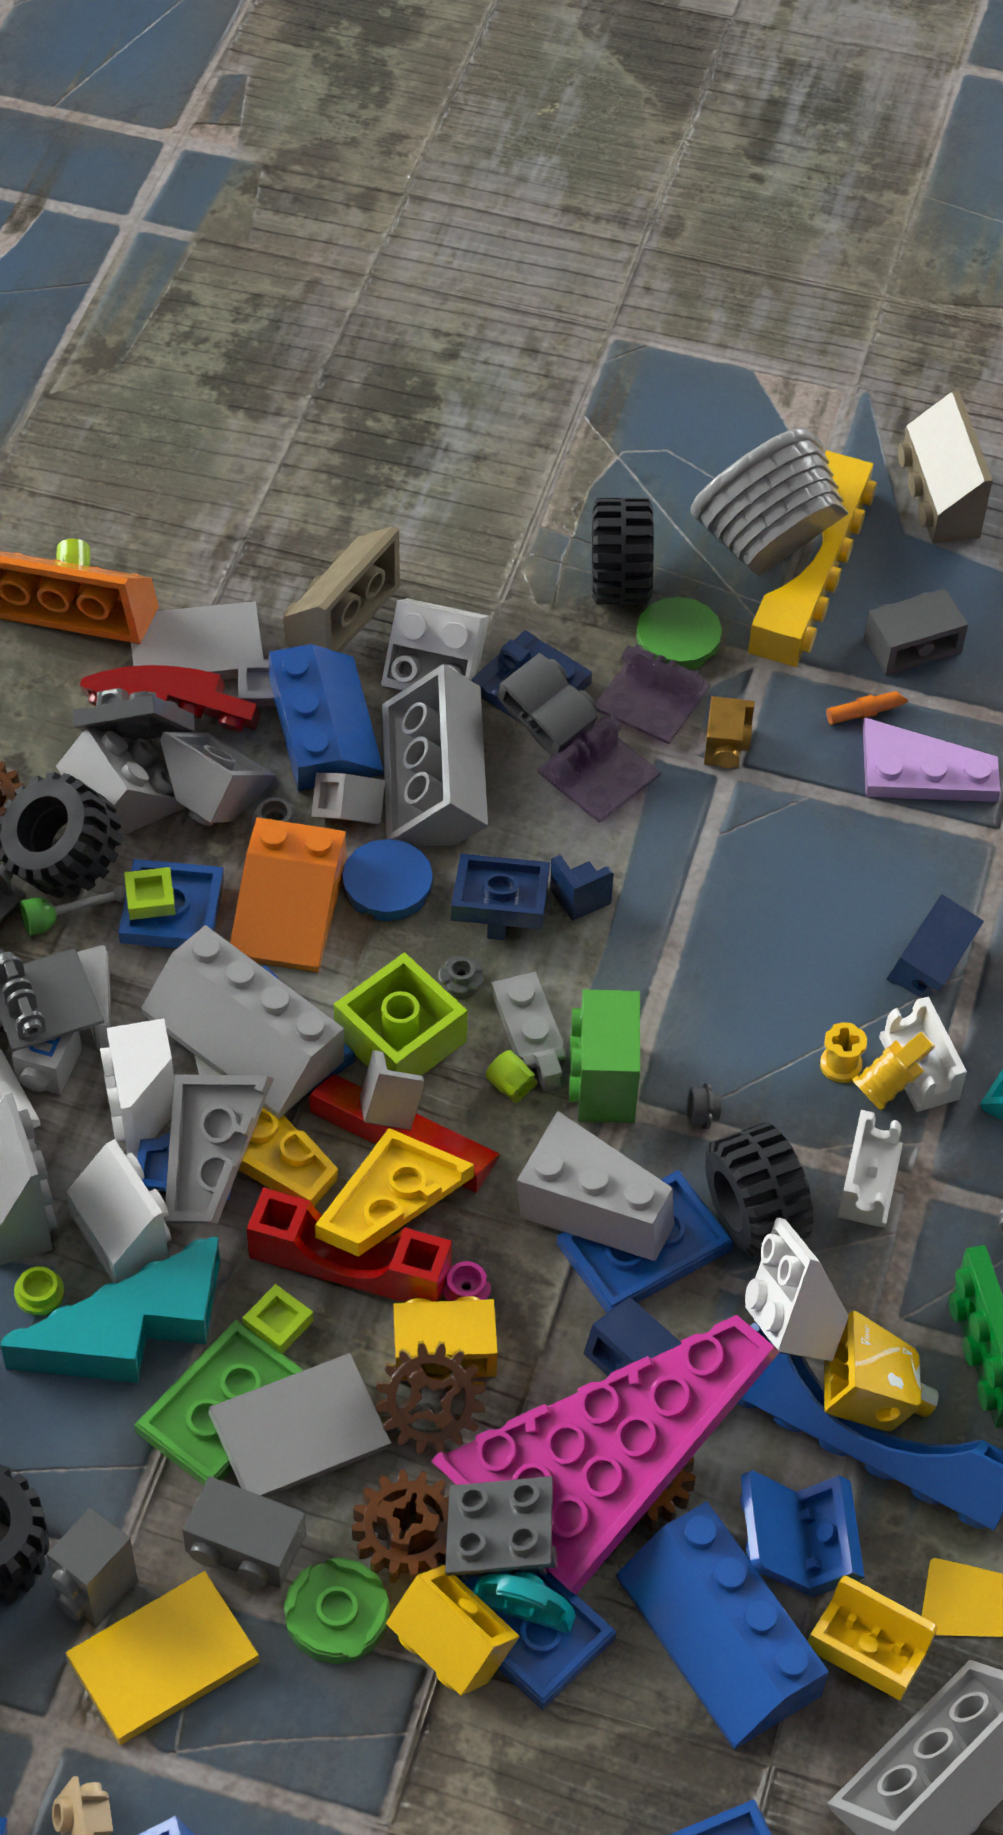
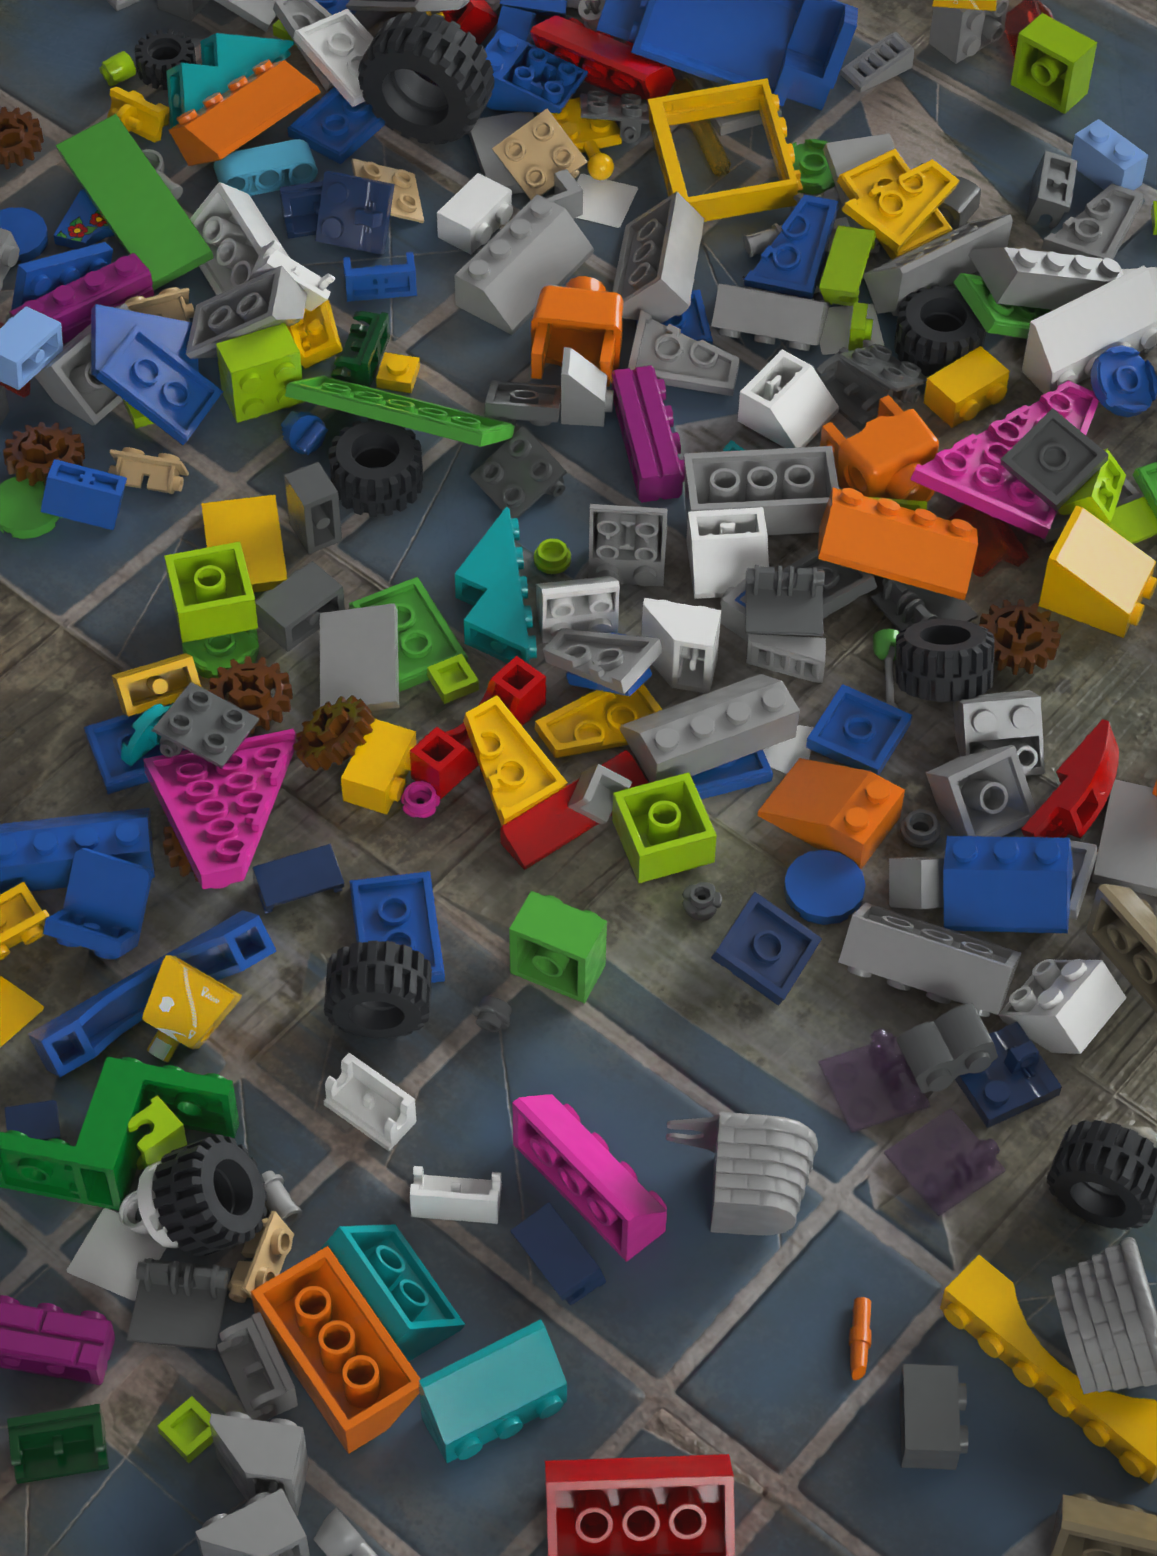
camera: 115 degrees right, 0 degrees up
(133, 715) = (1044, 737): dark grey hinge -> none
(149, 893) = (862, 702): lime plate -> none
(292, 1618) = (211, 592): none -> lime brick
(511, 1076) = (586, 893): lime hose -> none
(530, 1026) = (642, 931): light grey hinge -> none
(580, 888) = (751, 1011): dark blue panel -> none
(594, 1192) = (442, 888): light grey wedge -> none
(680, 631) = (1014, 1217): bright green tile -> none
(728, 731) = (869, 1194): pearl gold brick -> none
(782, 796) = (757, 1169): none -> light grey piece
(795, 1297) = (270, 969): white slope -> none
(841, 945) = (587, 1174): none -> dark pink slope
(842, 1055) = (492, 1134): yellow bush -> none
(894, 1070) = (446, 1150): yellow hinge -> none
(924, 767) = (767, 1354): lavender wing -> none

